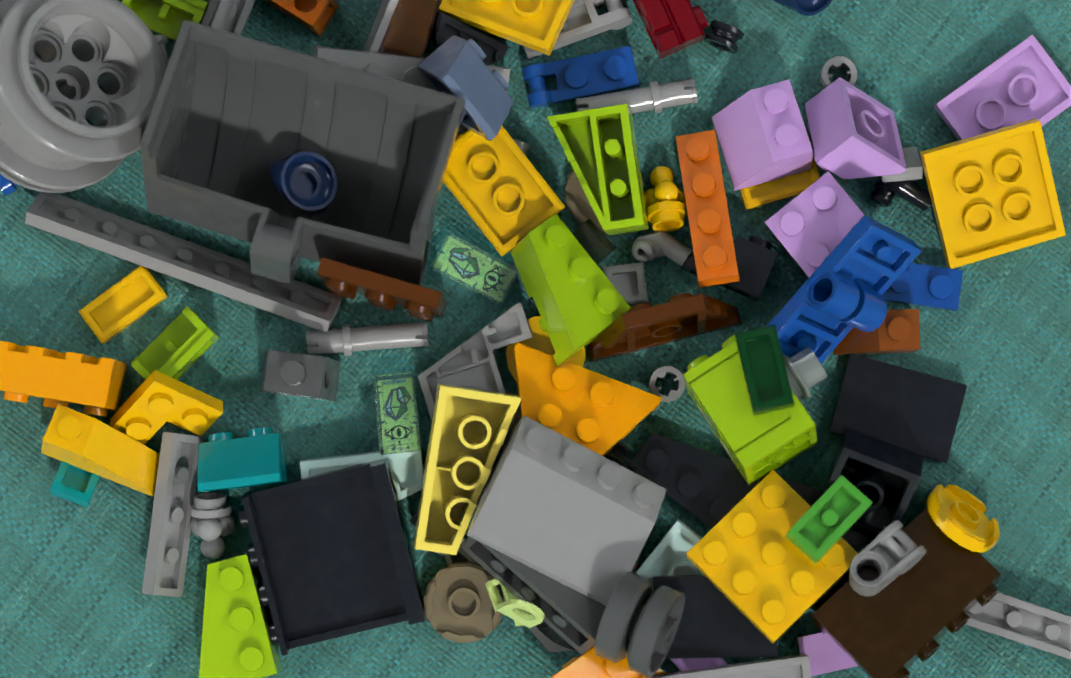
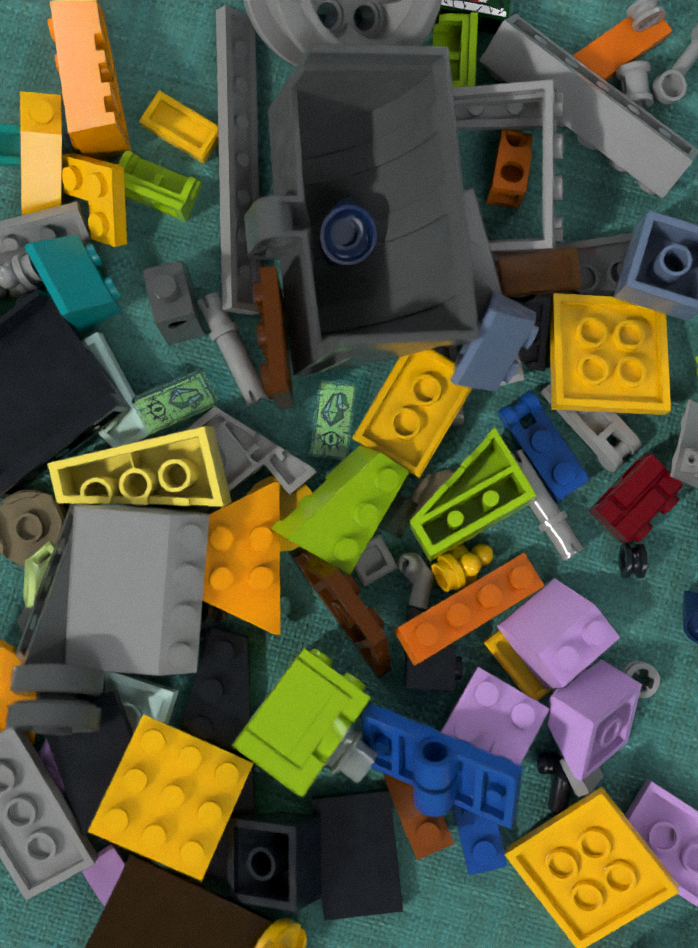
camera: 65 degrees right, 0 degrees up
(660, 373) = (288, 642): light grey bush -> none
(764, 370) = (336, 726): dark green tile -> none
(828, 519) = (221, 840): bright green plate -> none
(890, 554) = (211, 912): light grey piece -> none

